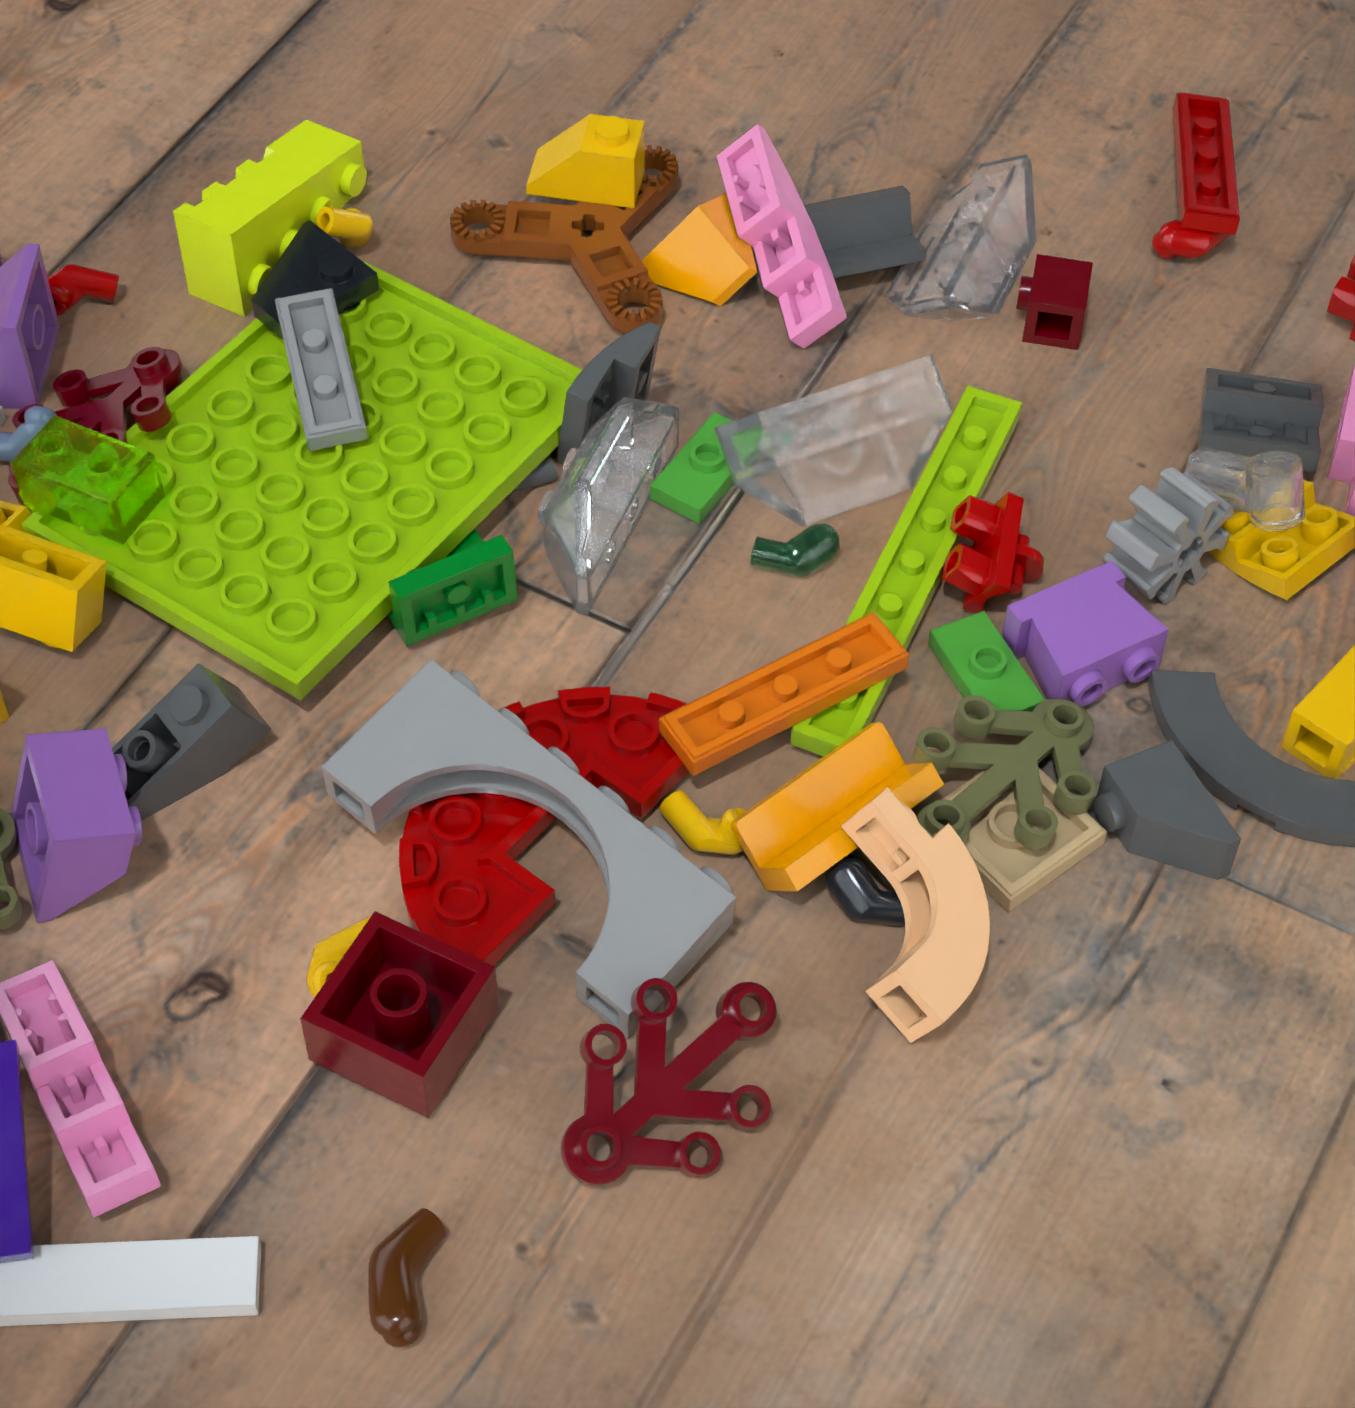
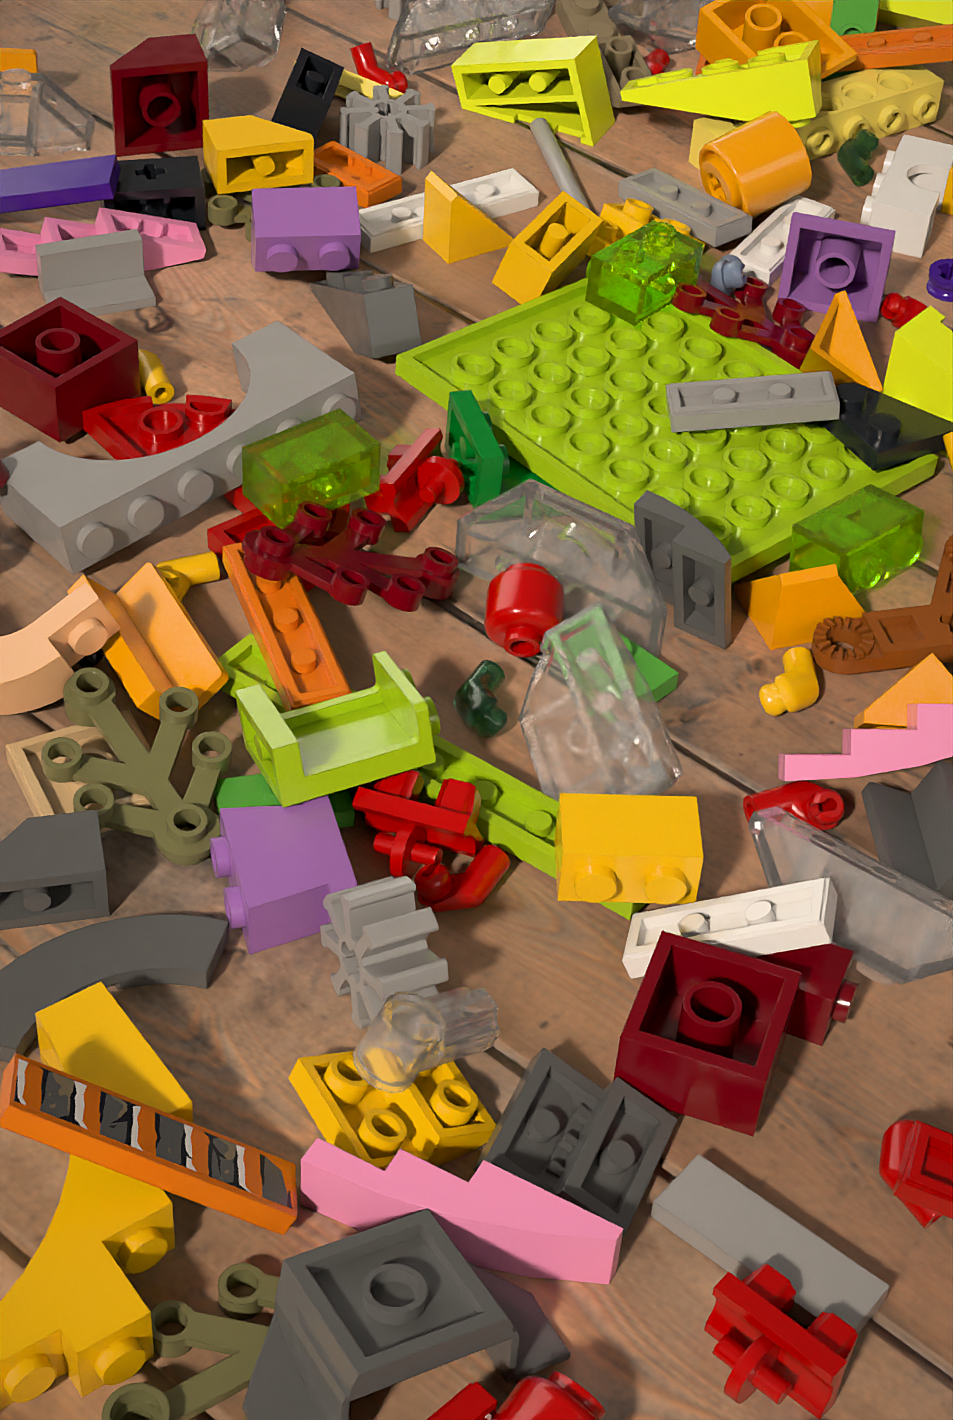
camera: 100 degrees right, 10 degrees down
(156, 1065) = (96, 272): none -> light grey panel
(193, 314) = (841, 347): none -> light orange slope
(496, 637) = (416, 481): none -> red hips
(503, 288) = (863, 534): none -> clear neon green brick
(565, 696) = (315, 461): none -> clear neon green brick
(590, 324) = (793, 603): none -> light orange slope
(674, 526) = (522, 607): none -> red head
(693, 333) = (794, 688): none -> yellow arm
(718, 693) = (277, 552): none -> dark red plant
(846, 335) = (801, 798): none -> red arm
(946, 597) = (342, 738): none -> lime panel
(996, 391) = (628, 848): none -> yellow brick
(1042, 329) = (742, 923): none -> white tile
(1042, 530) = (461, 890): none -> red arm
(1147, 337) = (707, 1031): none -> dark red brick
(1293, 311) = (747, 1231): none -> light grey tile

